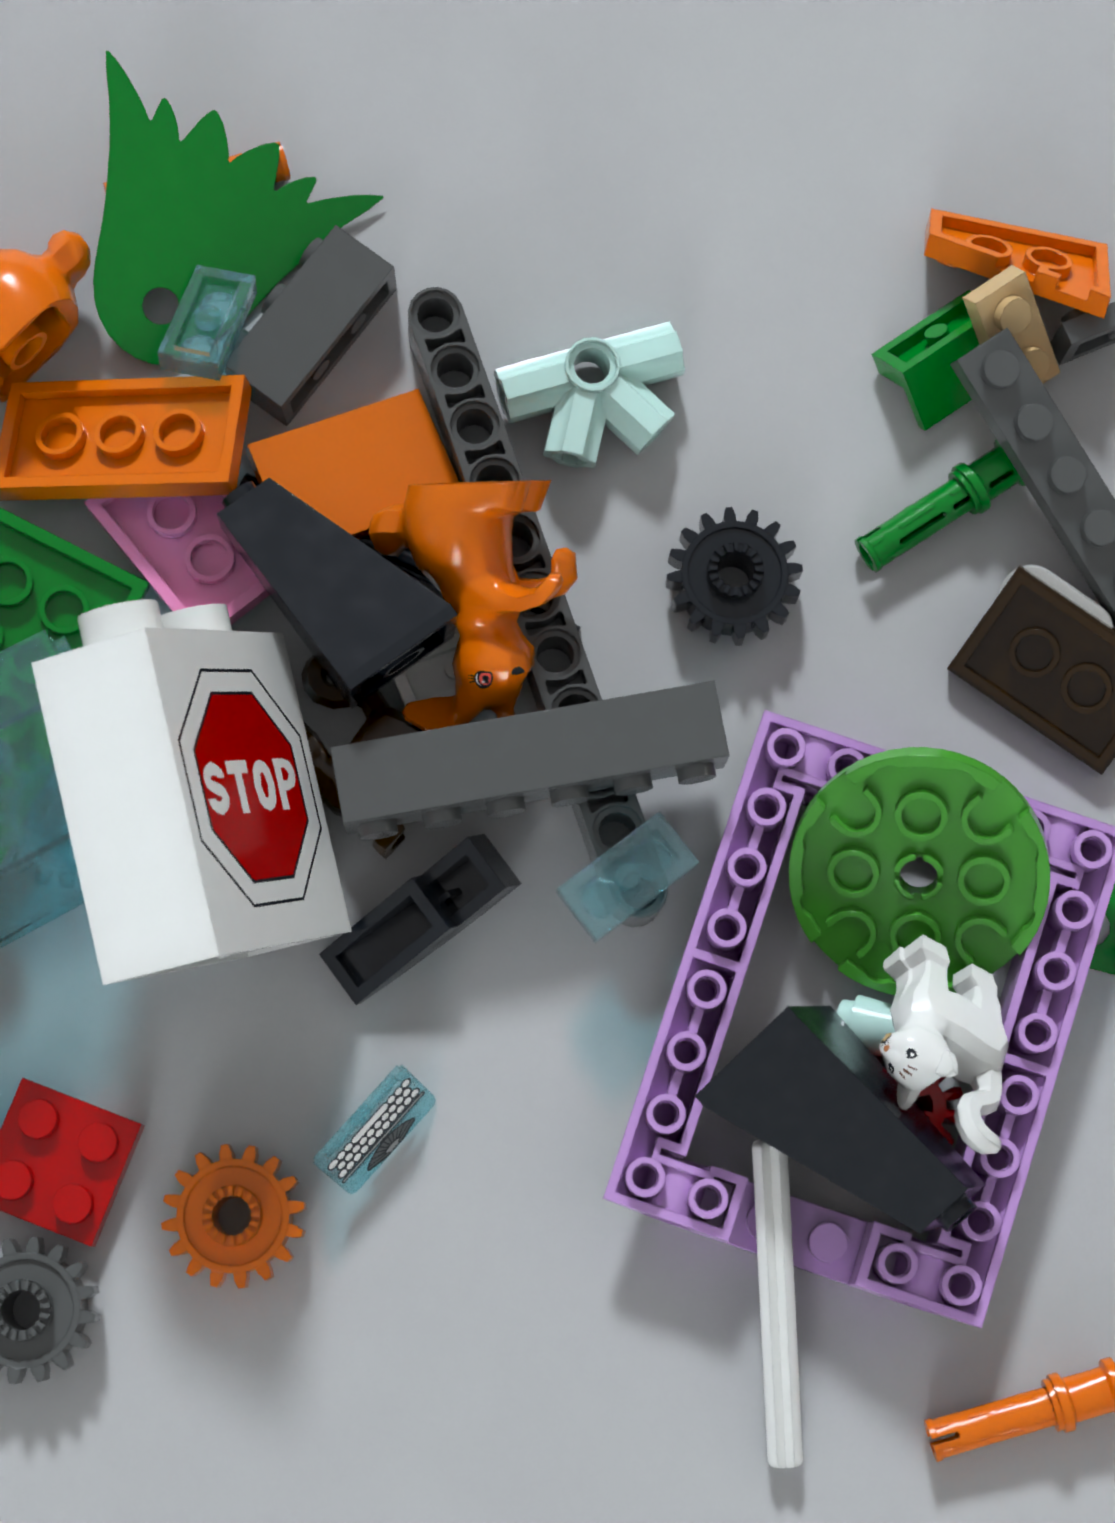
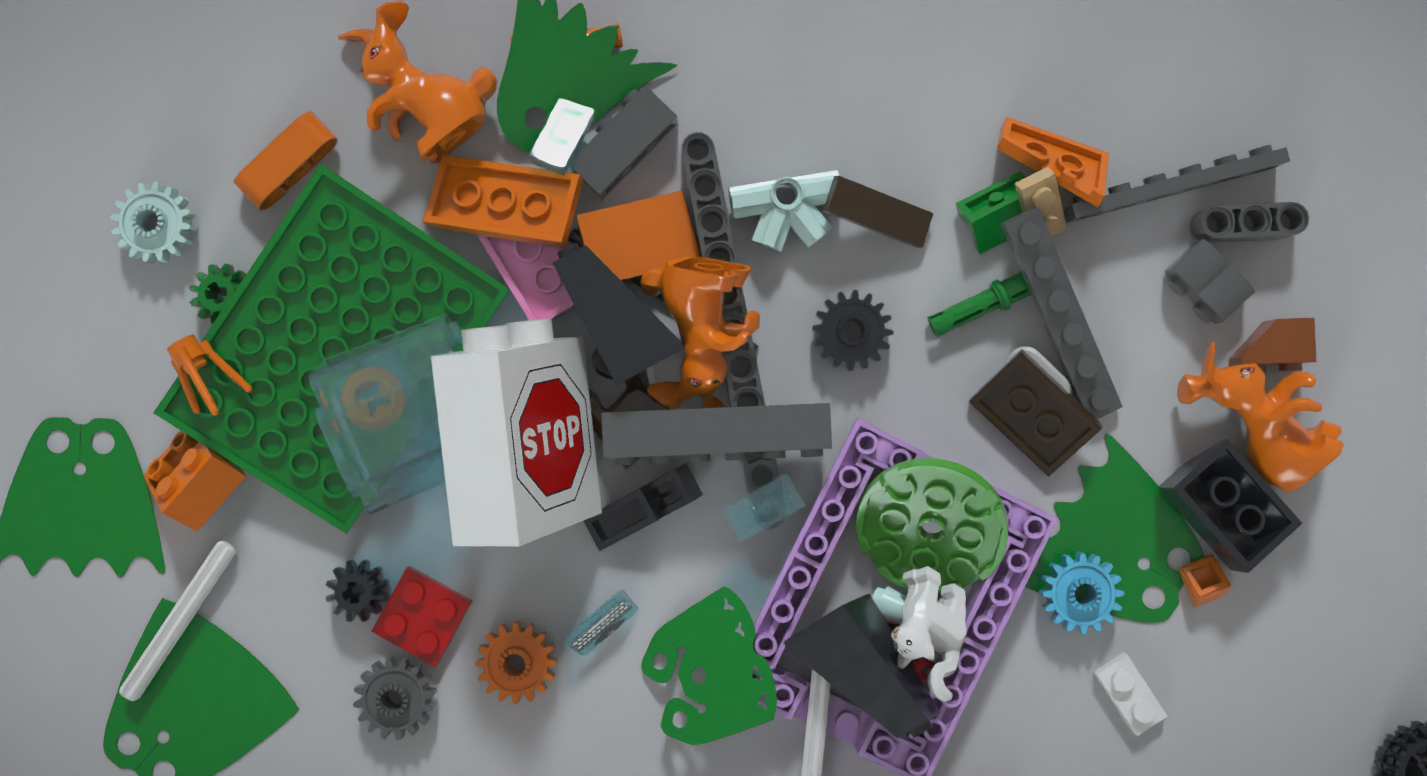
camera: 15 degrees right, 10 degrees up
(606, 1156) = (729, 663): none -> green piece
(746, 378) = (878, 212): none -> dark brown tile

